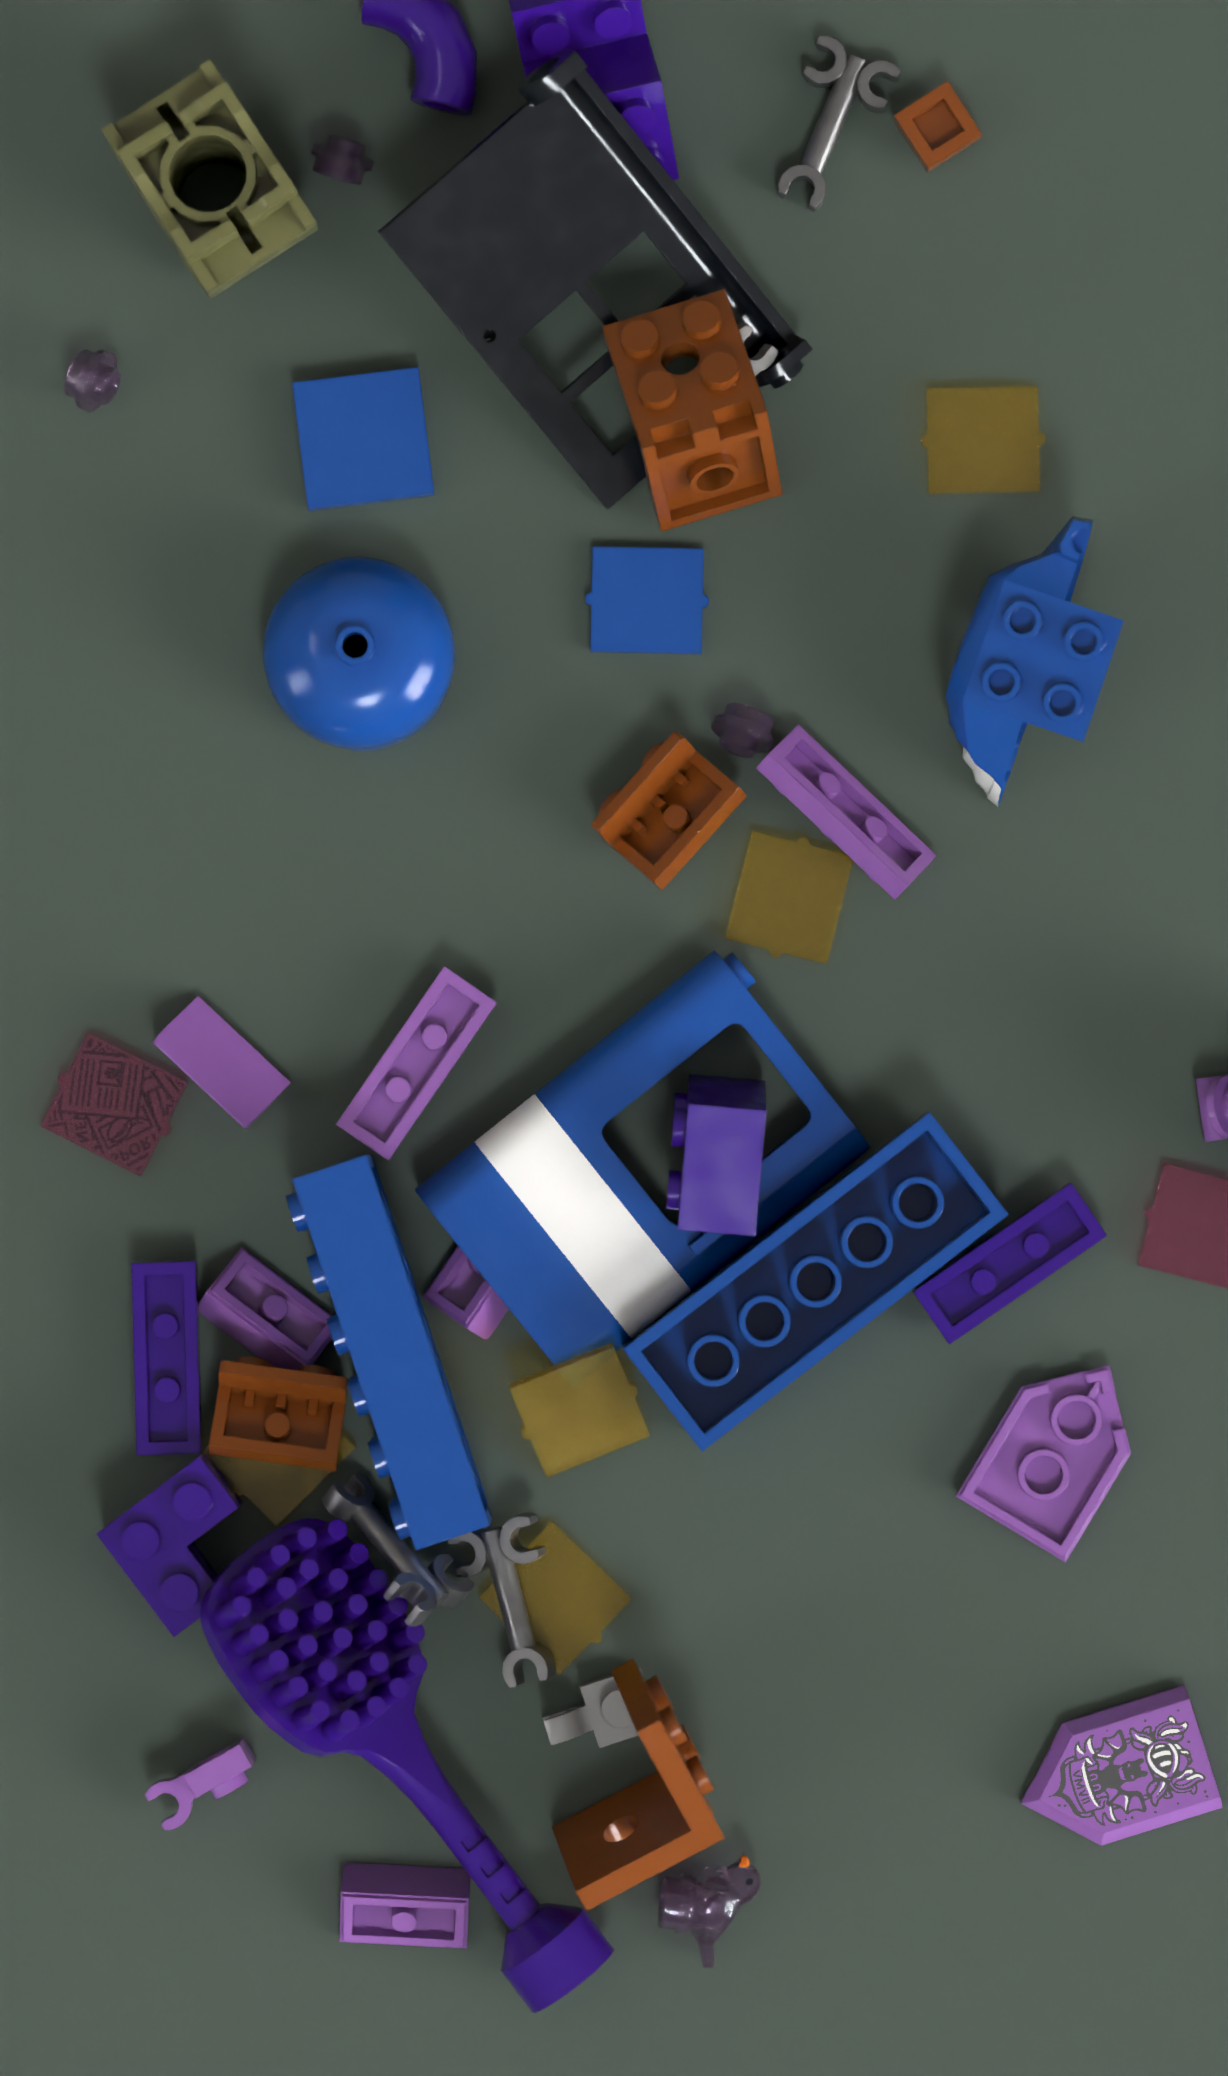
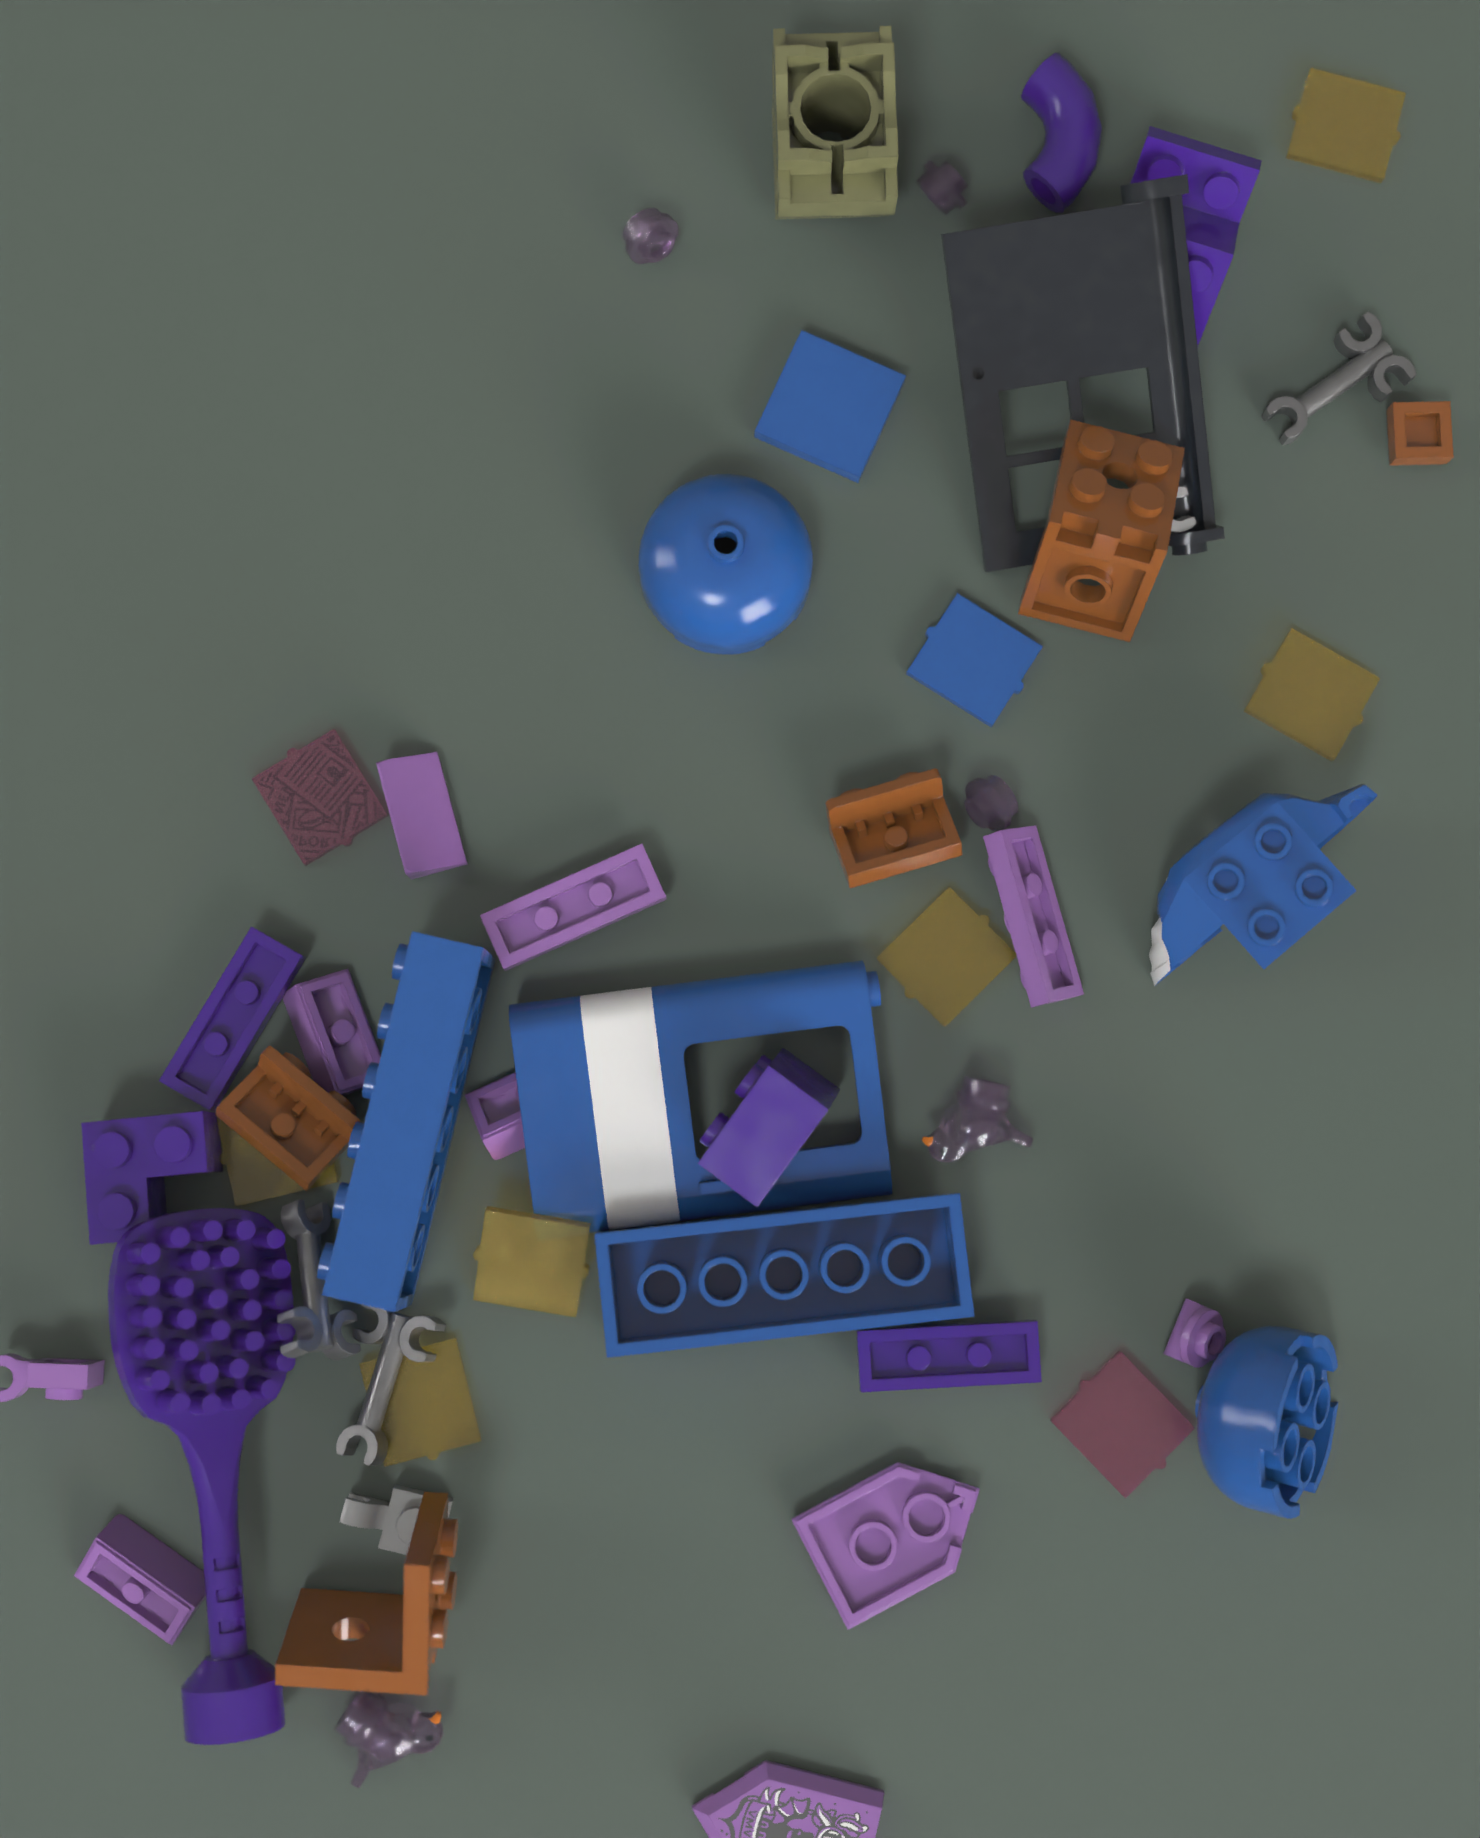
camera: 30 degrees right, 5 degrees down
(906, 1035) = (974, 1121): none -> clear purple animal

